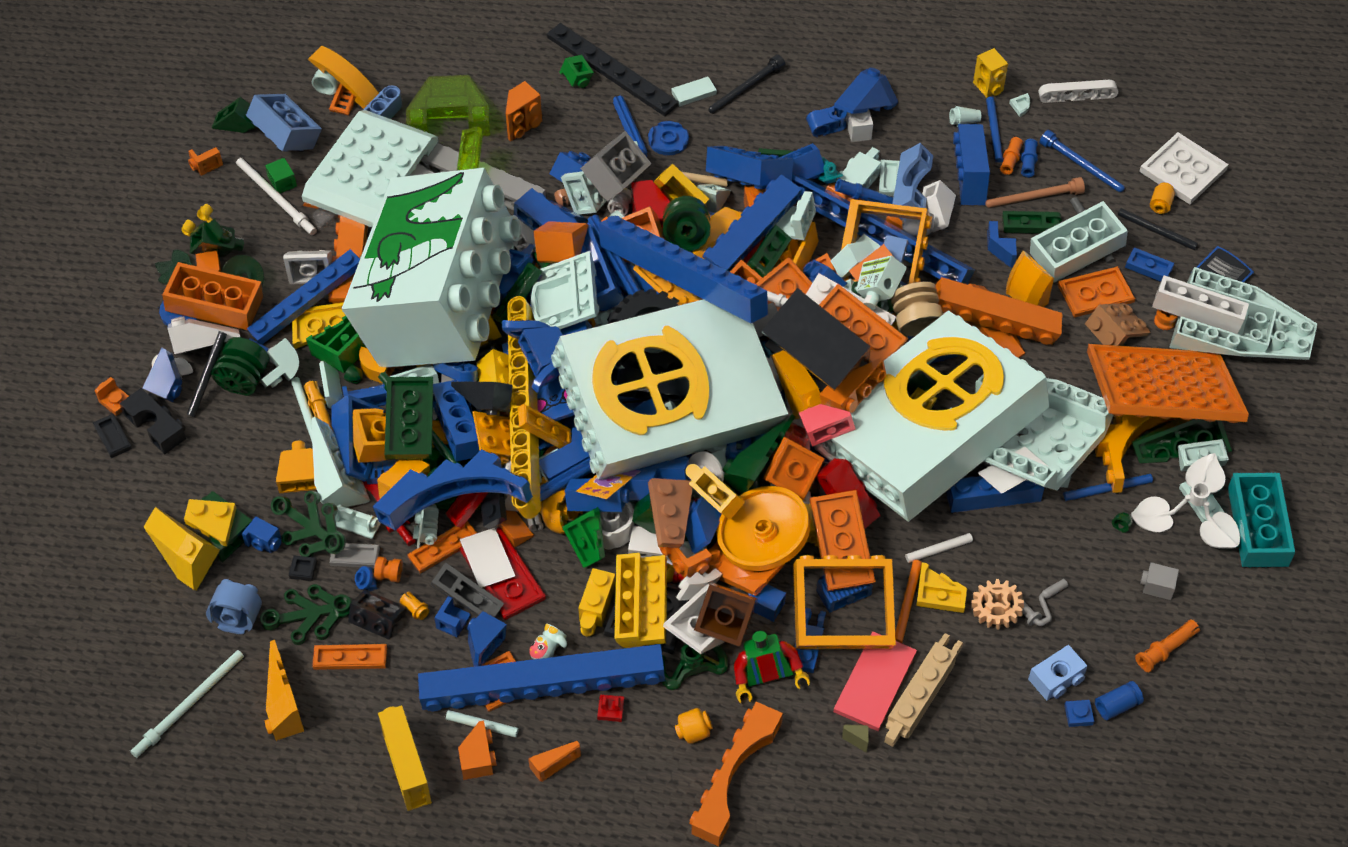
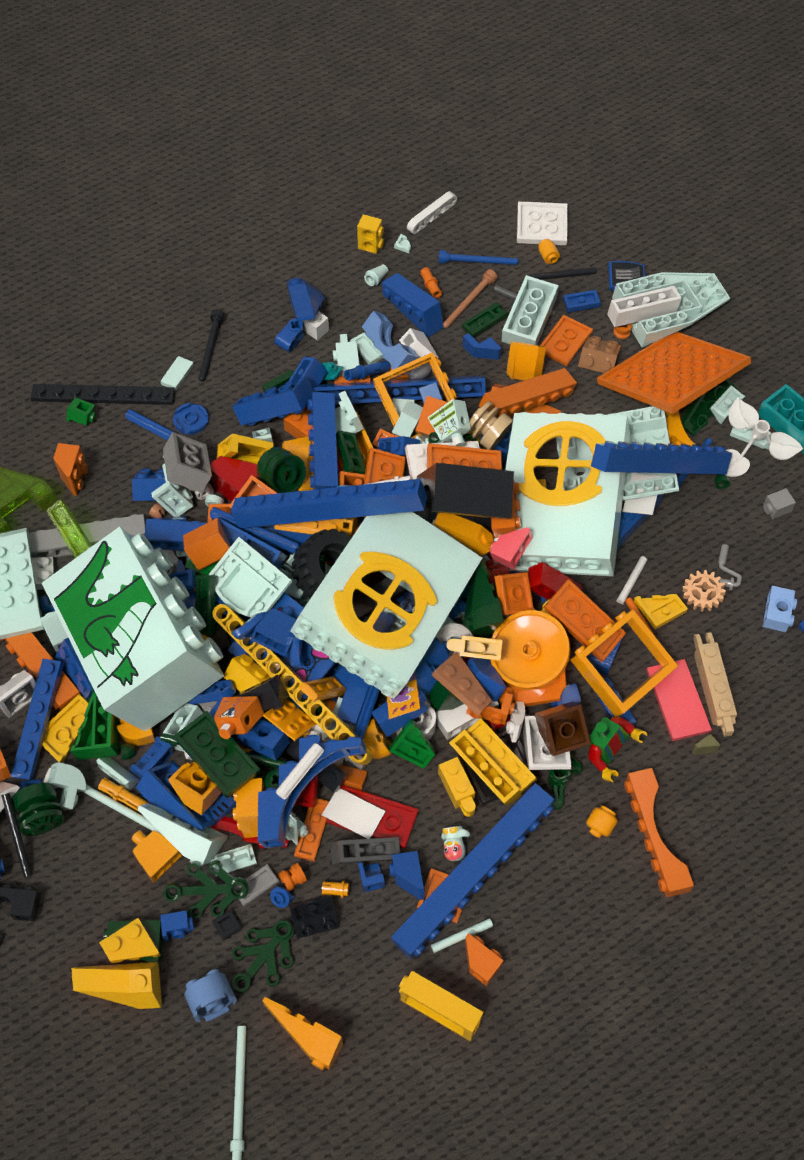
camera: 40 degrees left, 5 degrees up
(350, 656) = (324, 963): orange tile -> none
(449, 395) = (237, 715): none -> orange torso
(454, 473) = (299, 771): none -> white axle
(552, 761) = (534, 927): orange slope -> none
(610, 708) = (535, 853): red tile -> none
(706, 179) = (244, 431): tan bar -> none
(994, 129) = (400, 270): blue bar -> none
(1029, 158) = (443, 277): blue pin -> none
(1051, 444) = (660, 458): none -> blue brick

